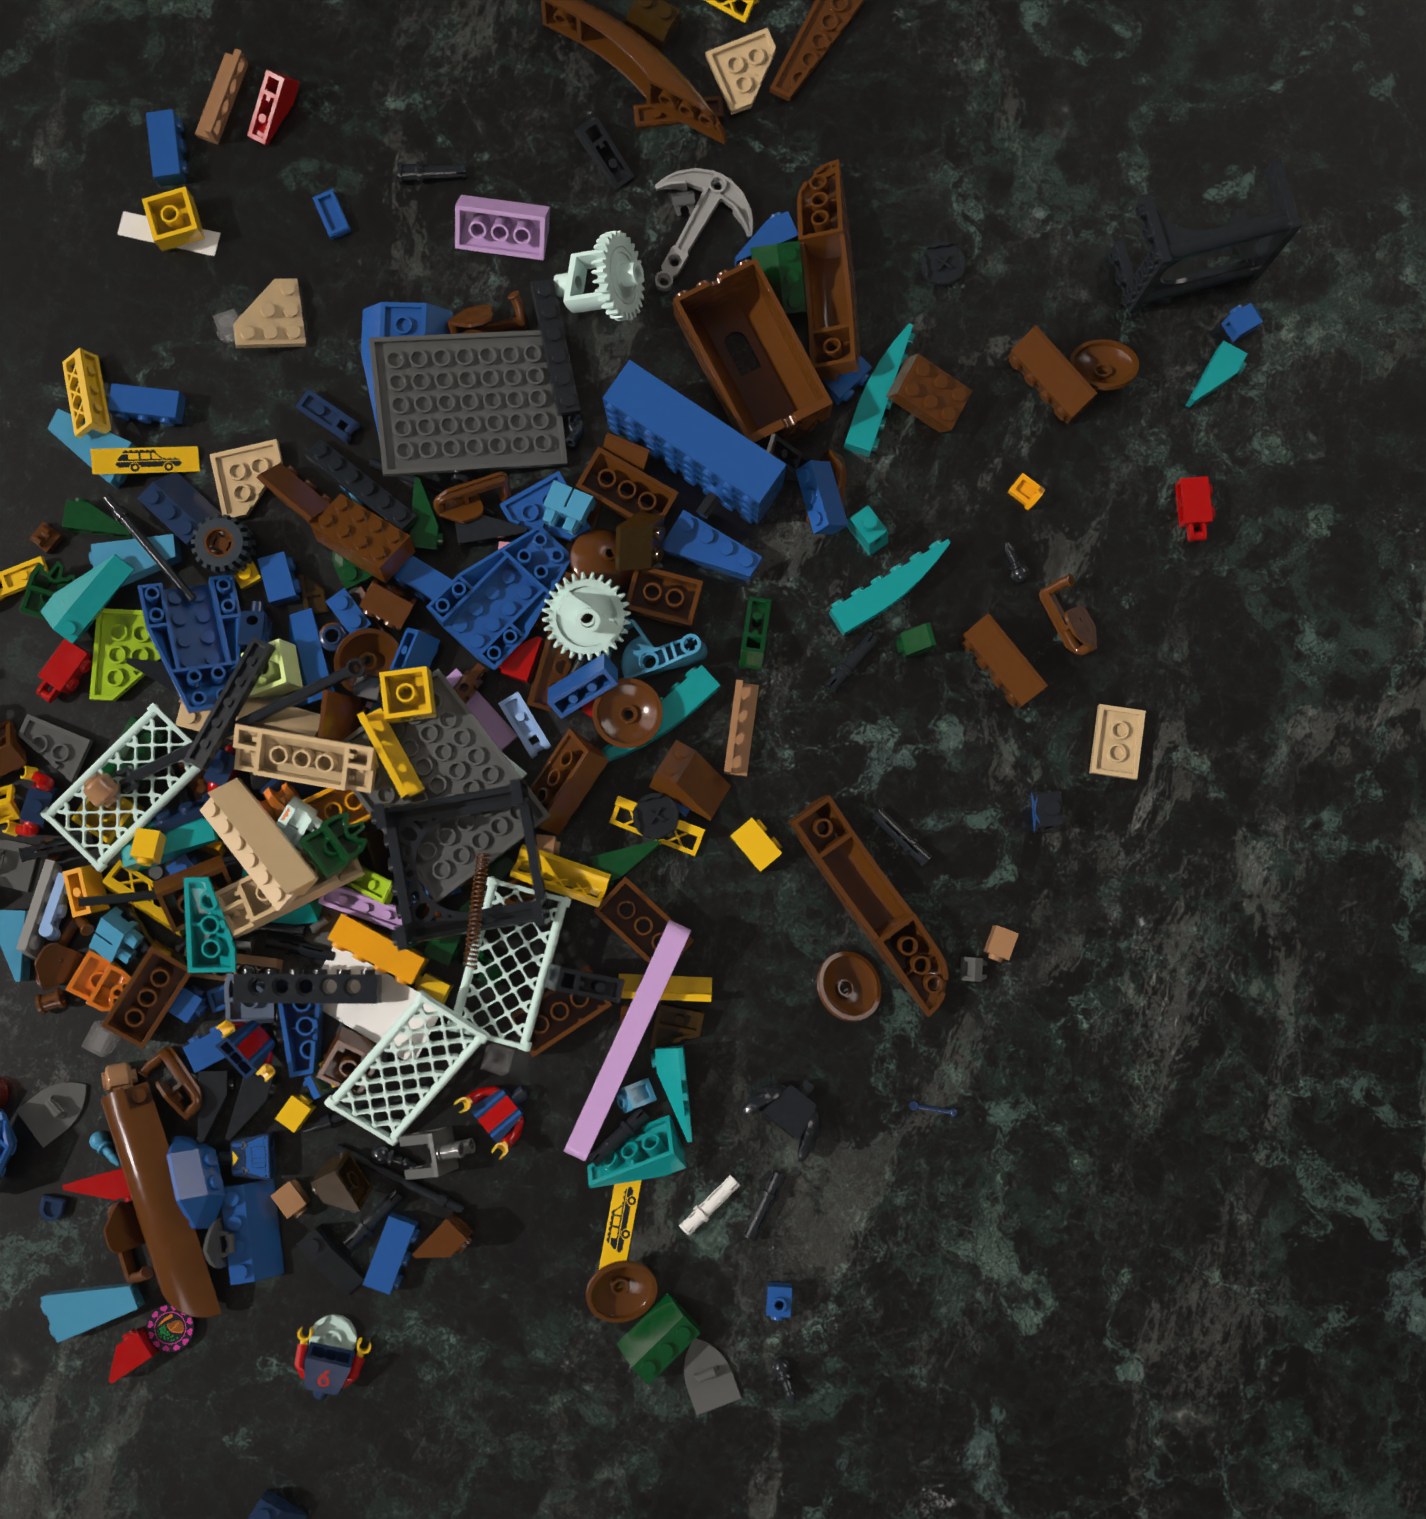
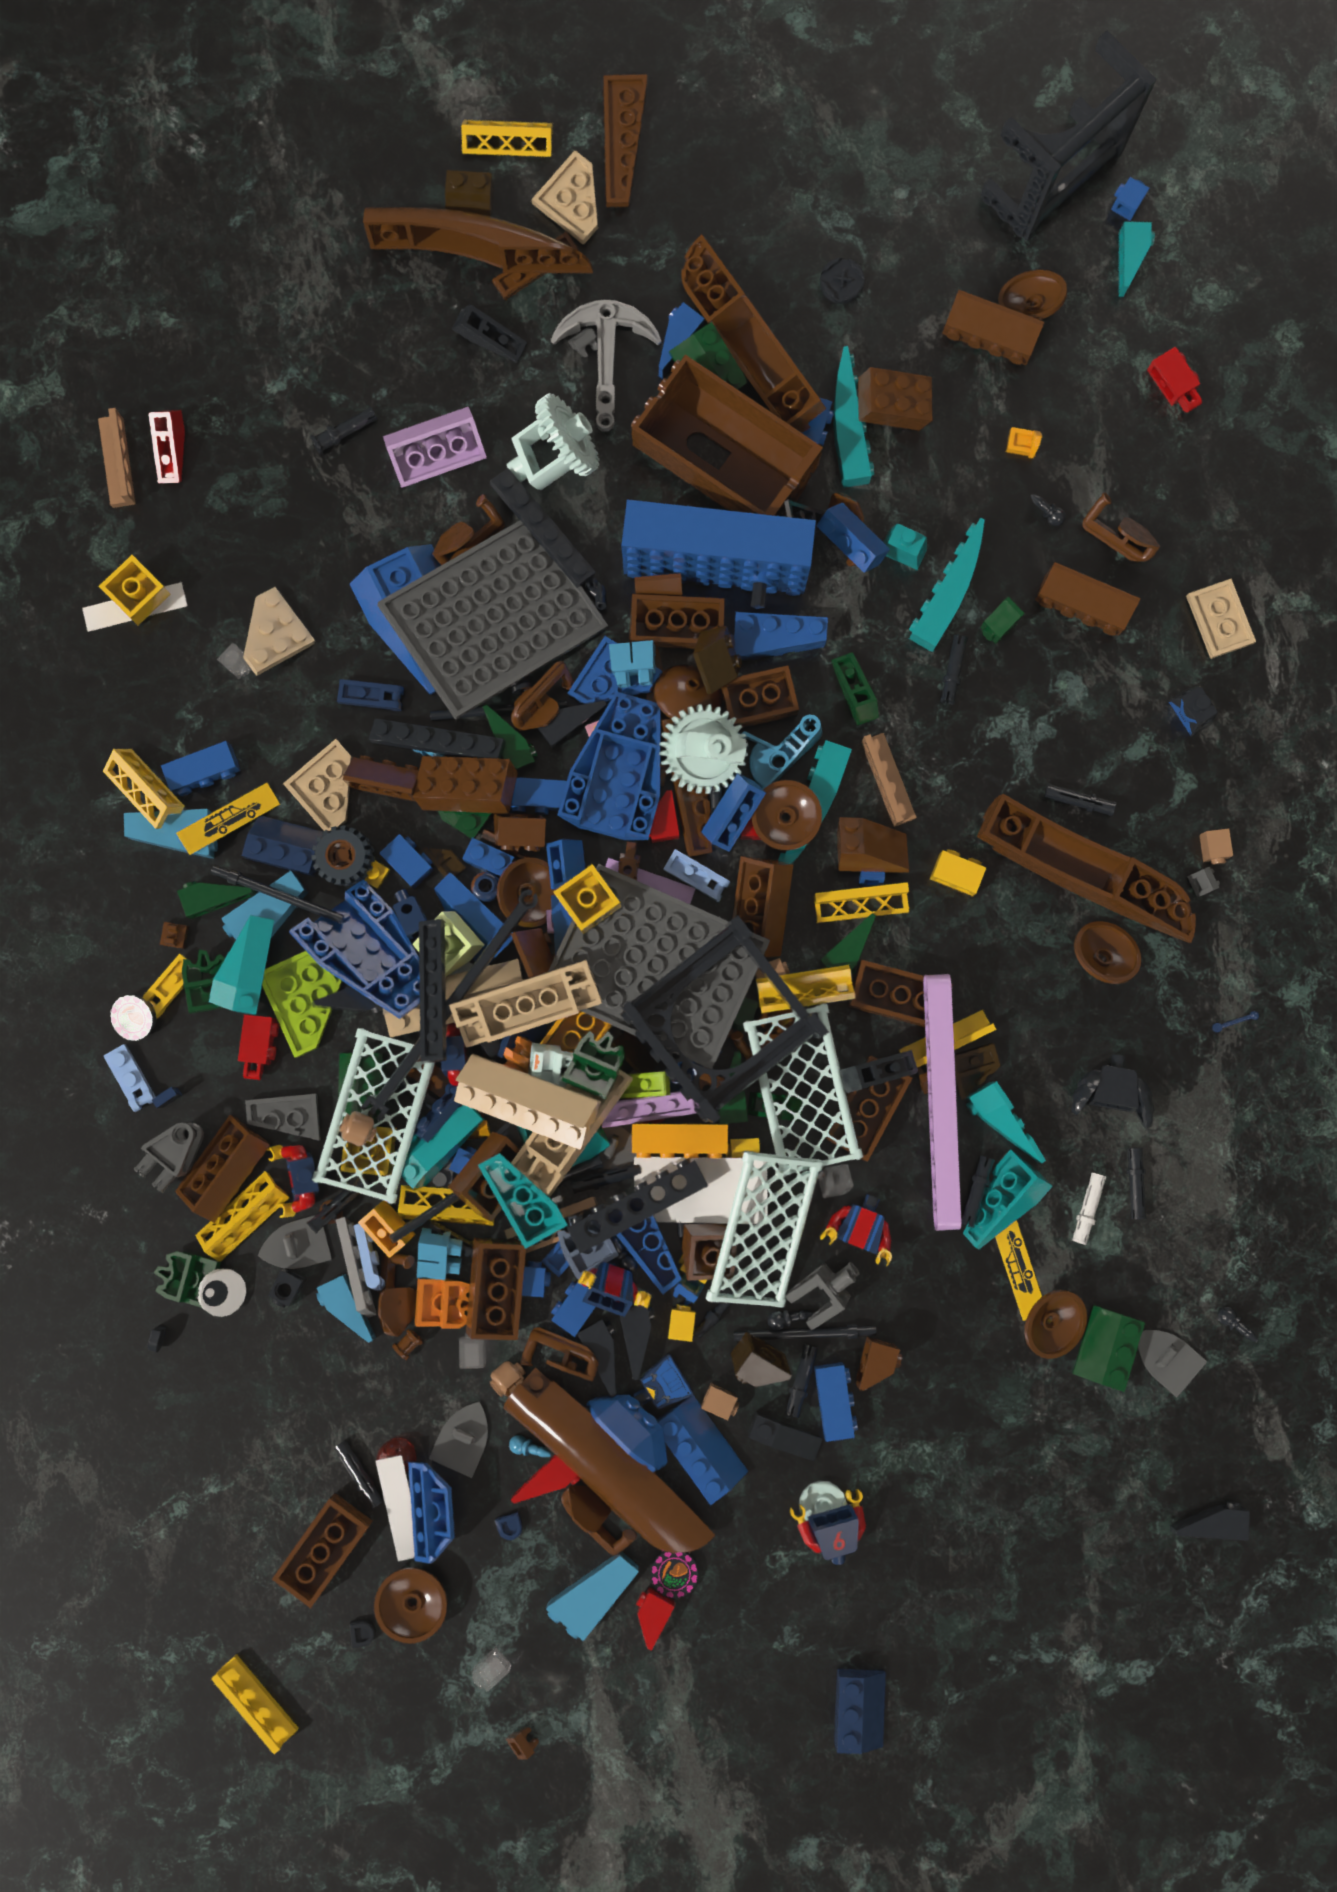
camera: 30 degrees left, 0 degrees up
(148, 846) = (427, 1156): yellow brick -> none
(167, 147) = (92, 529): blue brick -> none
(215, 1244) = (680, 1475): dark grey shield -> none
(331, 214) = (274, 513): blue tile -> none
(368, 688) = (548, 913): black brick -> none
(391, 754) = (600, 959): yellow fence -> none
(476, 909) = (755, 1054): reddish brown piece -> none
(635, 1095) = (973, 1148): dark azure bracket -> none
(656, 816) = (860, 893): black tile -> none
(778, 1300) = (1194, 1258): blue brick -> none

